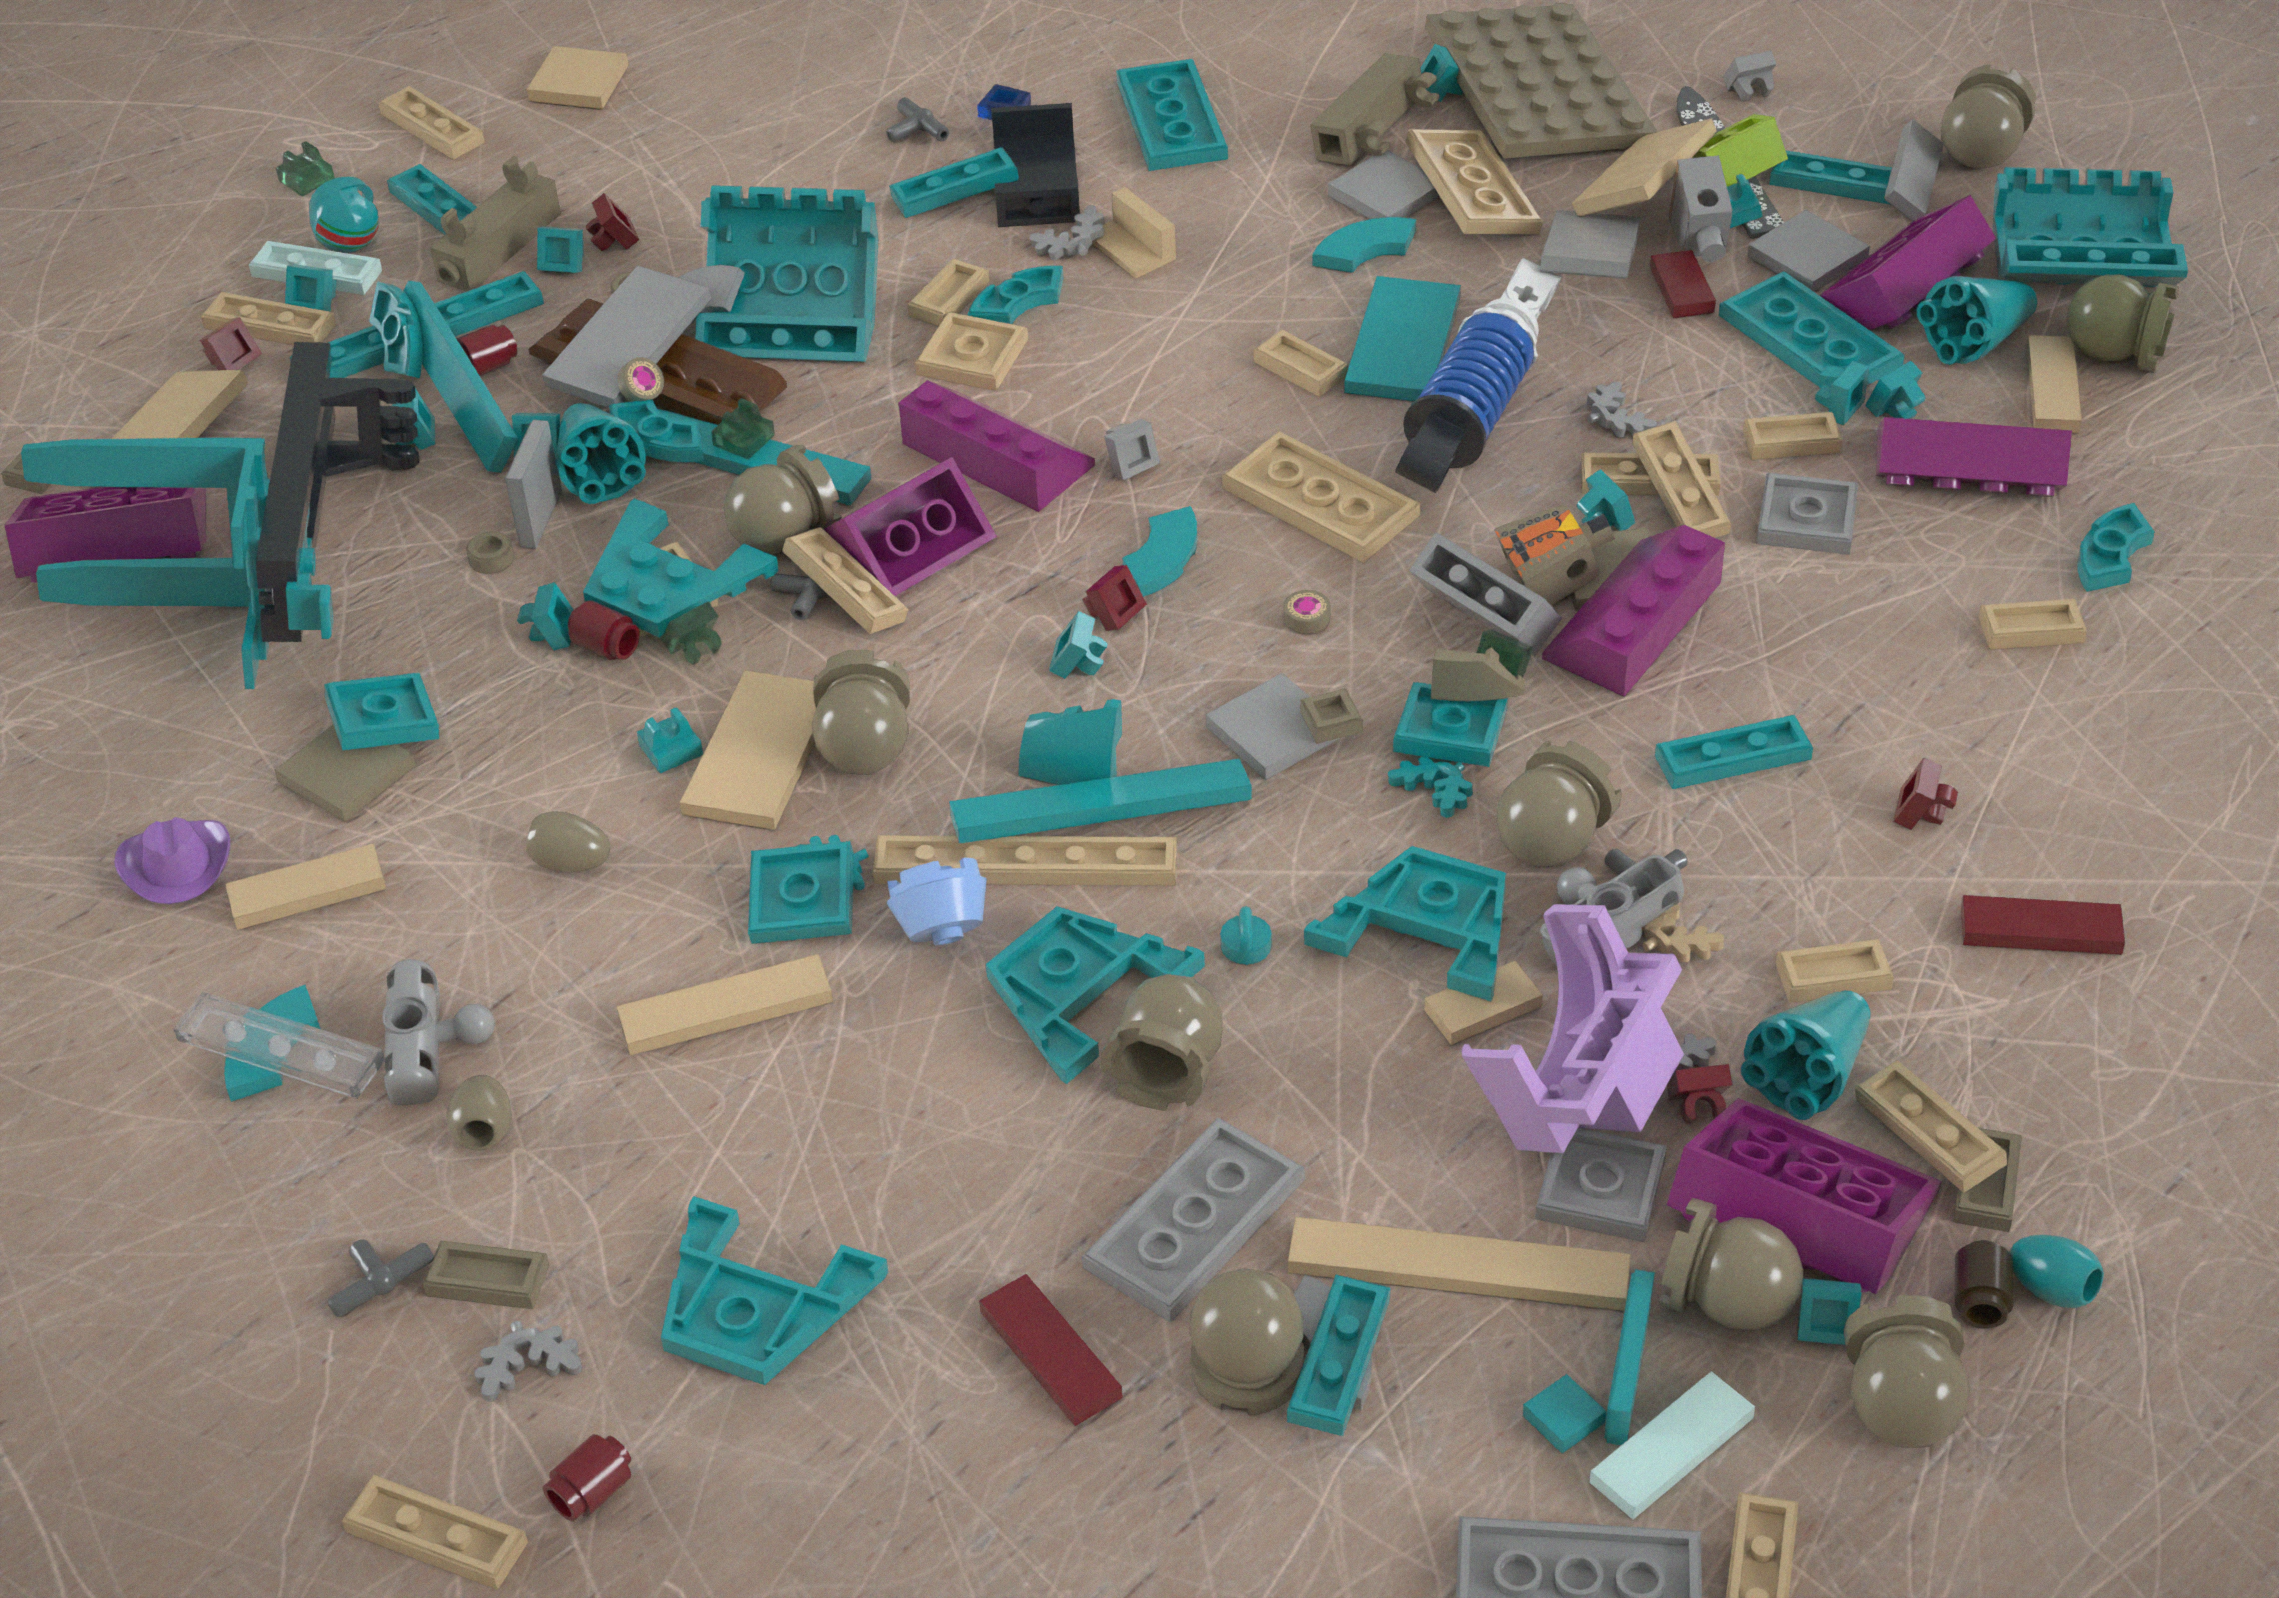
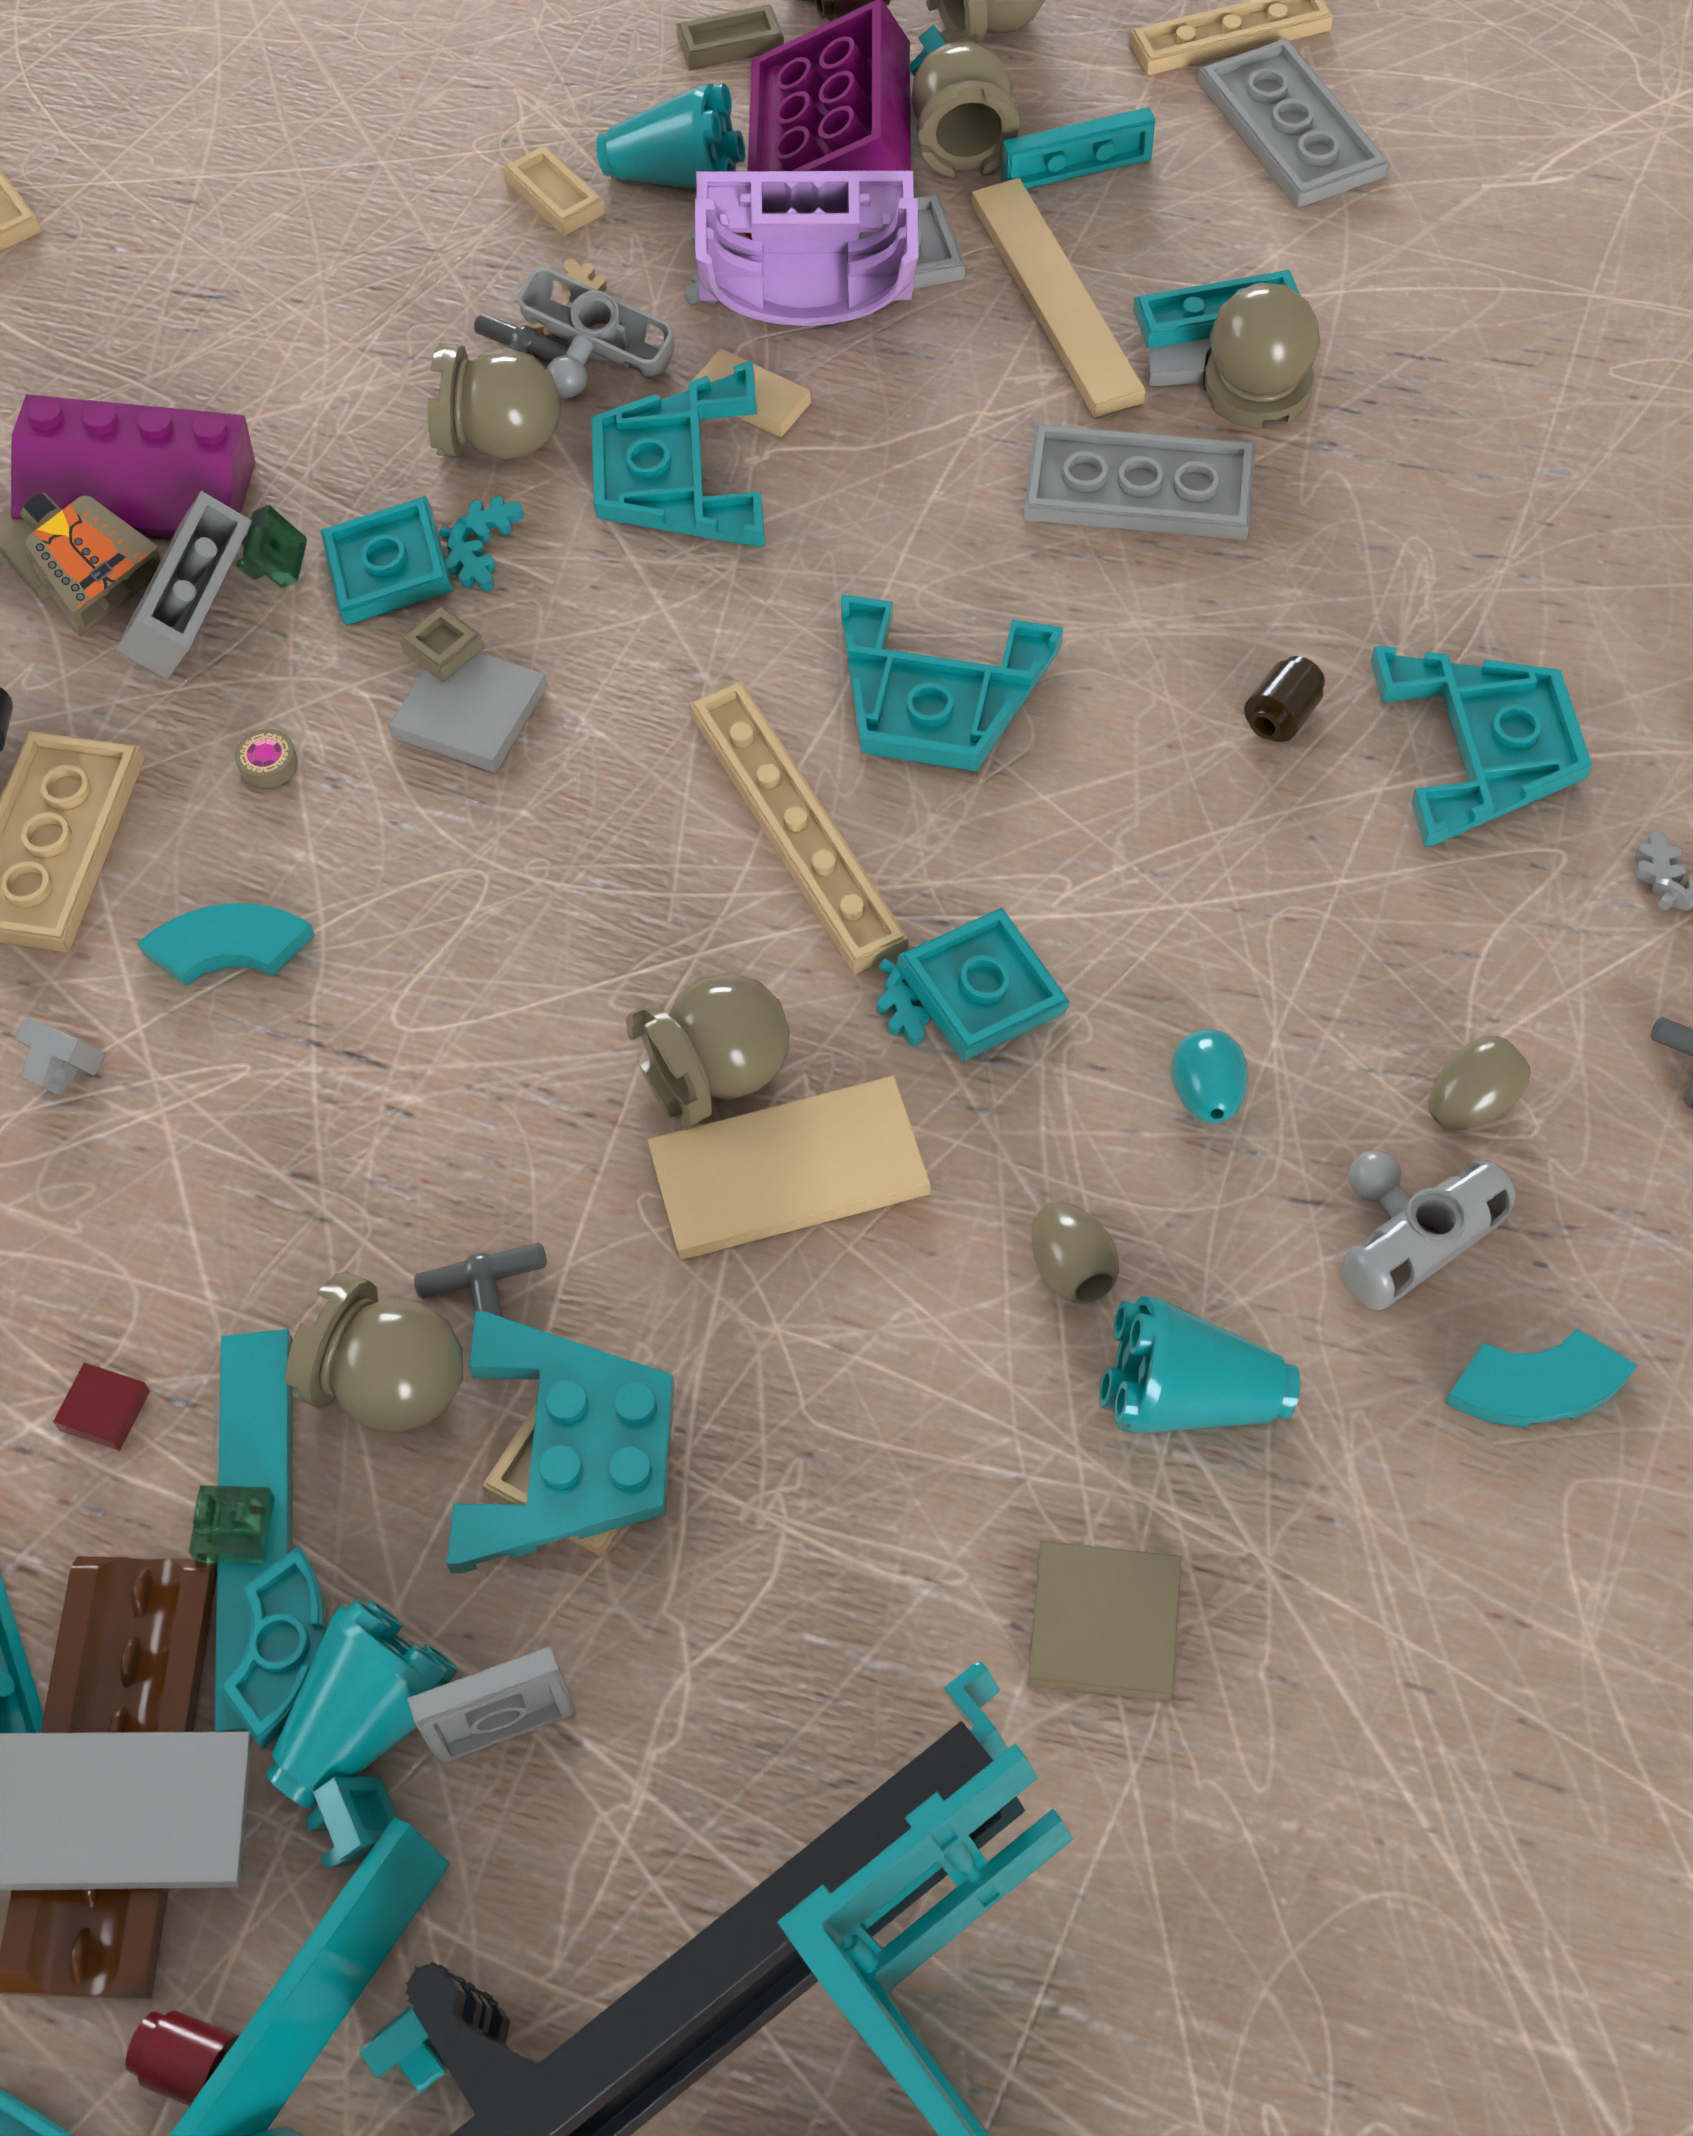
camera: 120 degrees left, 15 degrees up
(174, 859) = (1380, 1709): medium lavender hat -> none
(279, 1045) = (1555, 1344): clear tile -> none
(305, 886) = (1312, 1519): tan tile -> none
(381, 711) = (1007, 1617): teal tile -> none
(431, 850) = (1191, 1373): none -> teal cone
(486, 1274) = (1630, 972): dark tan tile -> none
(490, 552) = (616, 1733): dark tan tile -> none
(549, 616) = (717, 1537): teal tile -> none
(603, 631) = (704, 1454): dark red brick -> none
(618, 967) = (1210, 1075): none -> teal animal
(640, 380) = (197, 1711): tile -> none
(669, 741) = (835, 1269): teal tile -> none
(693, 628) = (647, 1340): clear green tile -> none
(724, 1004) = (1169, 971): tan tile -> none
(845, 580) = (465, 1225): tan tile -> none
(872, 416) = (101, 1406): none -> dark red tile
(889, 1182) = (1285, 699): none -> dark brown brick
(915, 528) = (327, 1211): magenta slope -> none
(938, 901) = (930, 823): light blue cone -> none
(989, 445) = (107, 1217): magenta slope -> none
(1051, 1349) = (1353, 509): dark red tile -> none
(1071, 744) = (628, 832): teal slope -> none
(1078, 648) = (453, 929): teal tile -> none
(1100, 800) = (685, 789): teal tile -> none
(1114, 598) = (348, 931): dark red tile -> none
(1164, 1042) = (975, 554): dark tan tile -> none
(1246, 938) = (788, 591): teal tile -> none
(1472, 677) = (320, 533): dark tan slope -> none
(1564, 1413) = (1152, 180): teal tile -> none
(1671, 1445) = (1178, 122): light aqua tile -> none
(1733, 751) = (301, 347): teal tile -> none
(1923, 796) = (302, 190): dark red tile -> none
(1931, 1126) = (715, 52): tan tile -> none
(2042, 924) = (416, 86): dark red tile -> none

